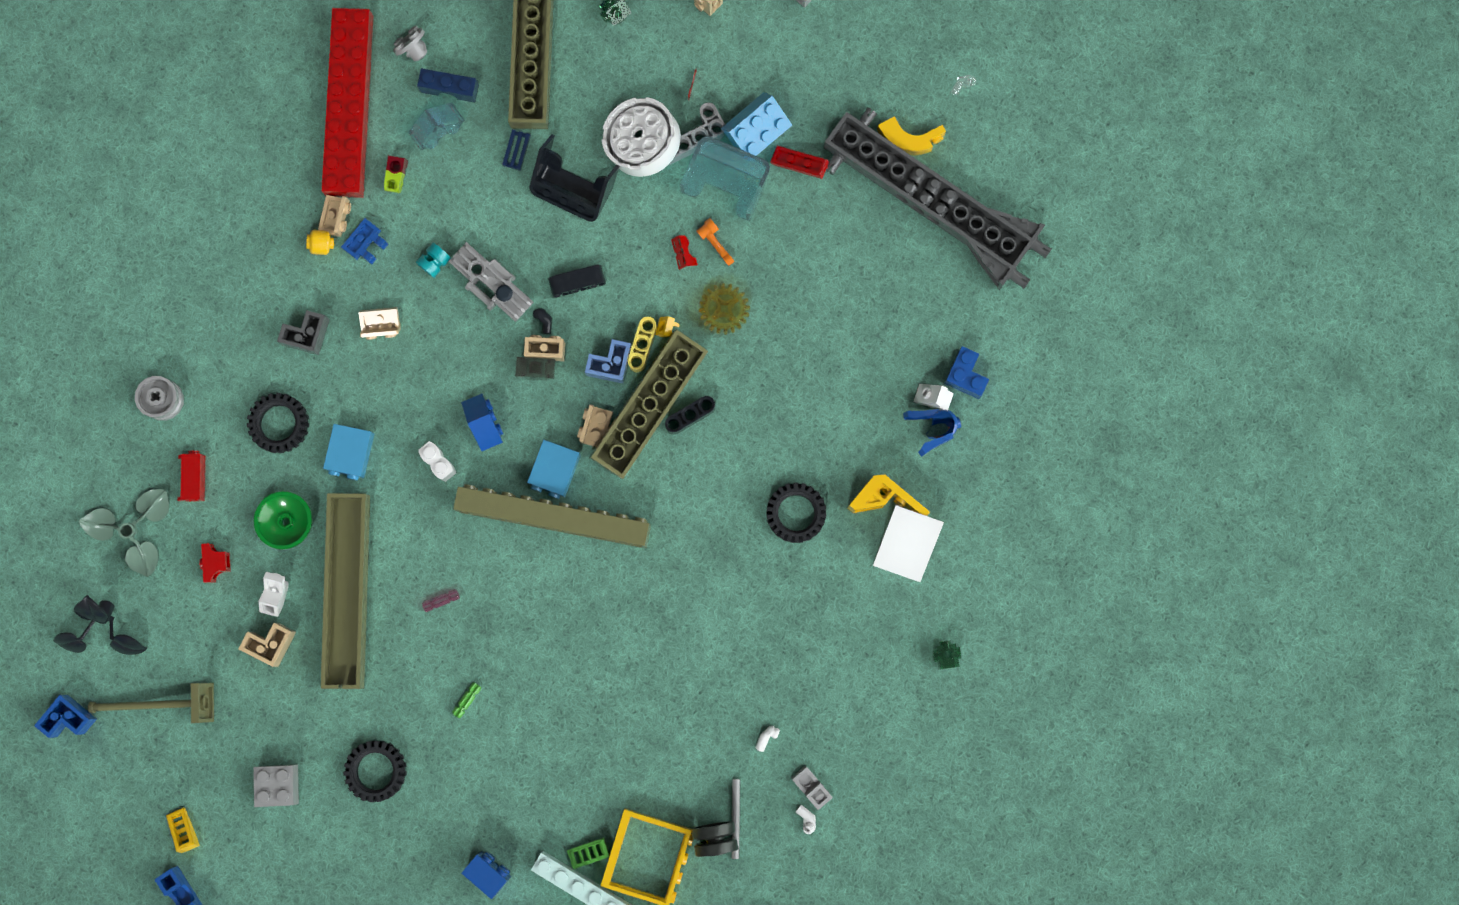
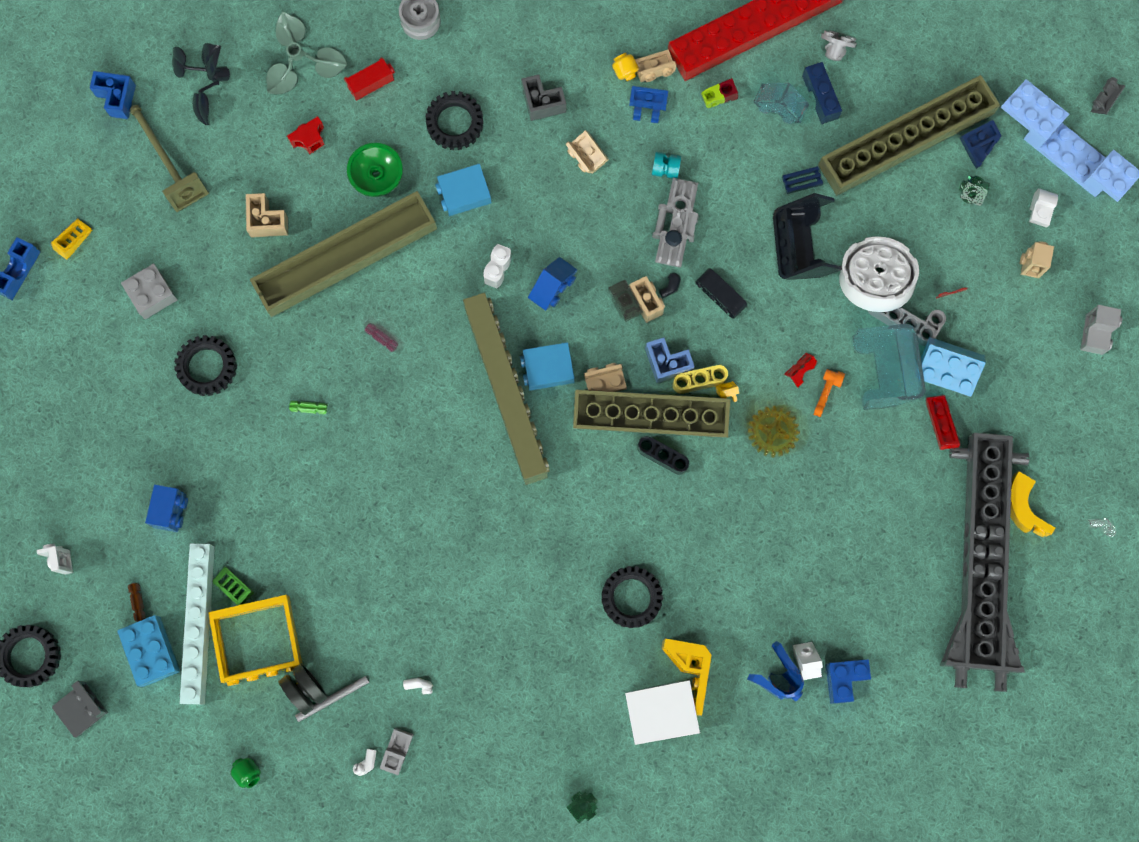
camera: 55 degrees right, 5 degrees down
(274, 594) = (309, 198): white brick -> none

